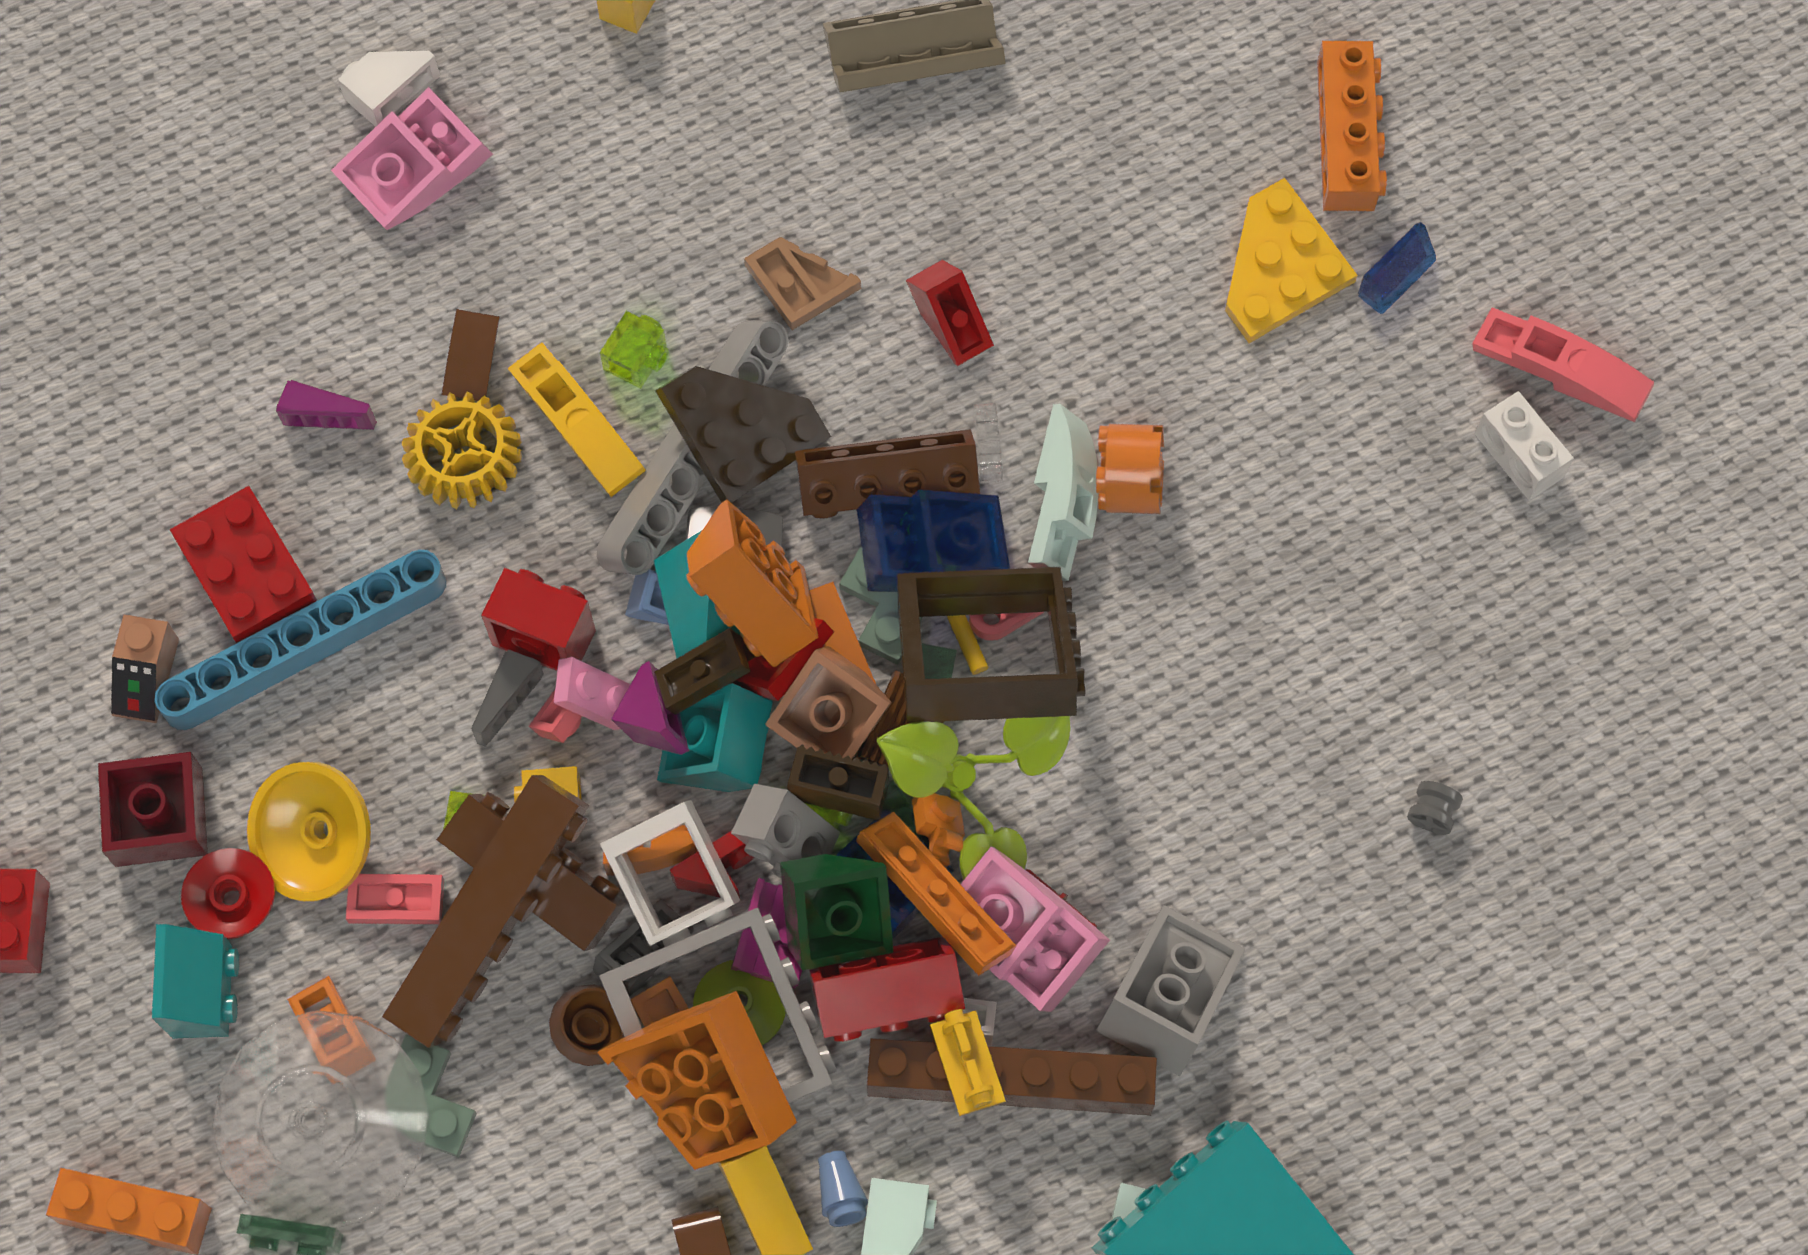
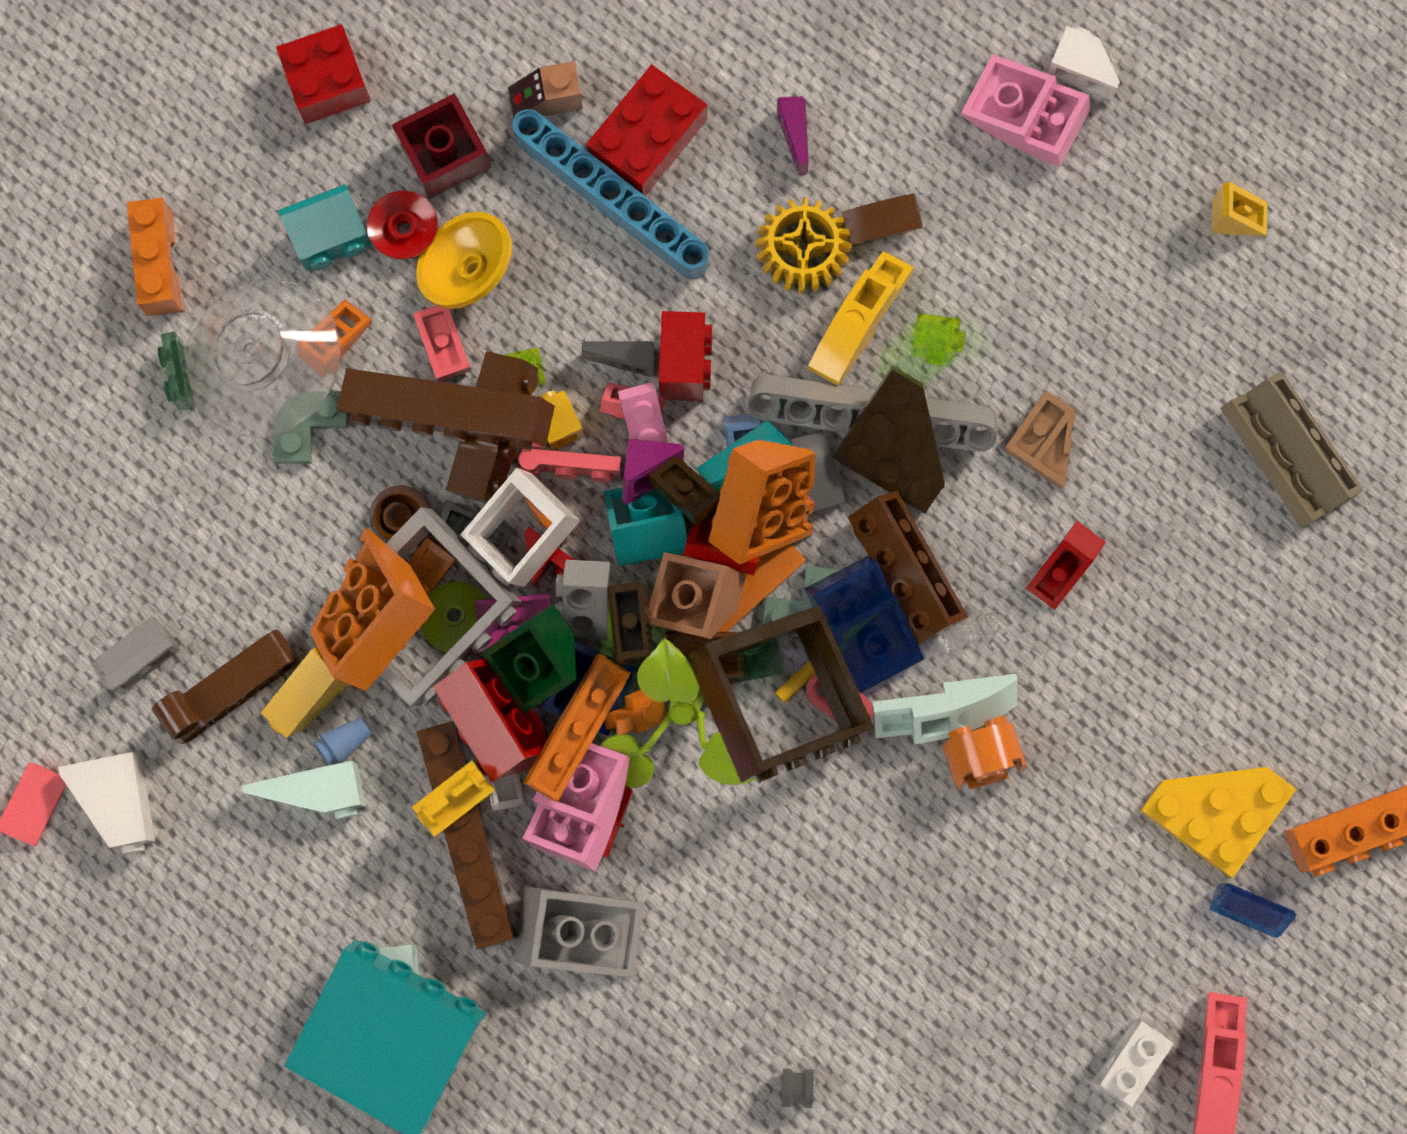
camera: 70 degrees right, 10 degrees up
(611, 801) = (569, 464): none -> coral plate

